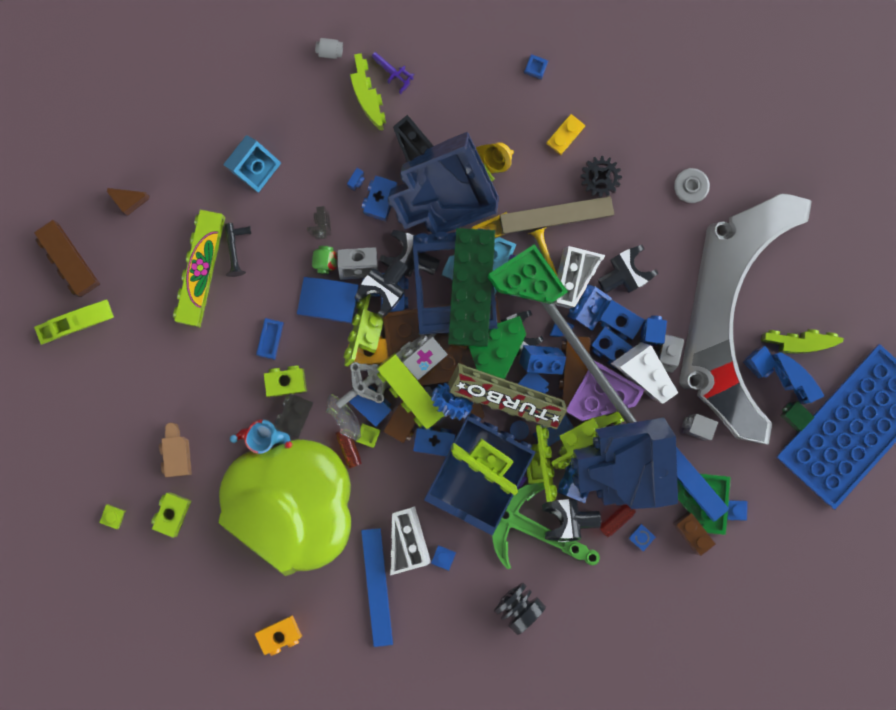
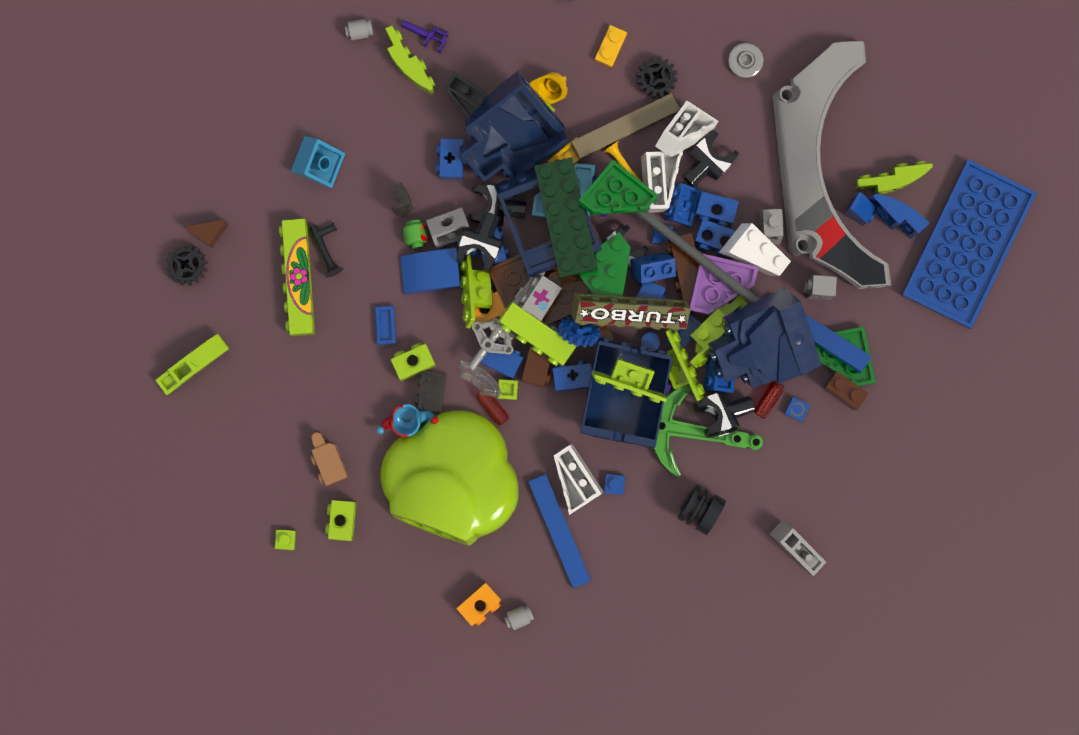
camera: 20 degrees left, 0 degrees up
(67, 258) = (167, 305): reddish brown brick -> none
(90, 229) = (182, 271): none -> black gear
(313, 659) = (519, 617): none -> light grey brick
(356, 179) = (423, 148): blue plate -> none
(602, 672) = (797, 547): none -> light grey slope
(614, 235) = (686, 129): none -> white wedge
(653, 331) = (750, 209): blue brick -> none
(737, 510) = (880, 356): blue plate -> none
(796, 415) = (909, 250): dark green brick -> none

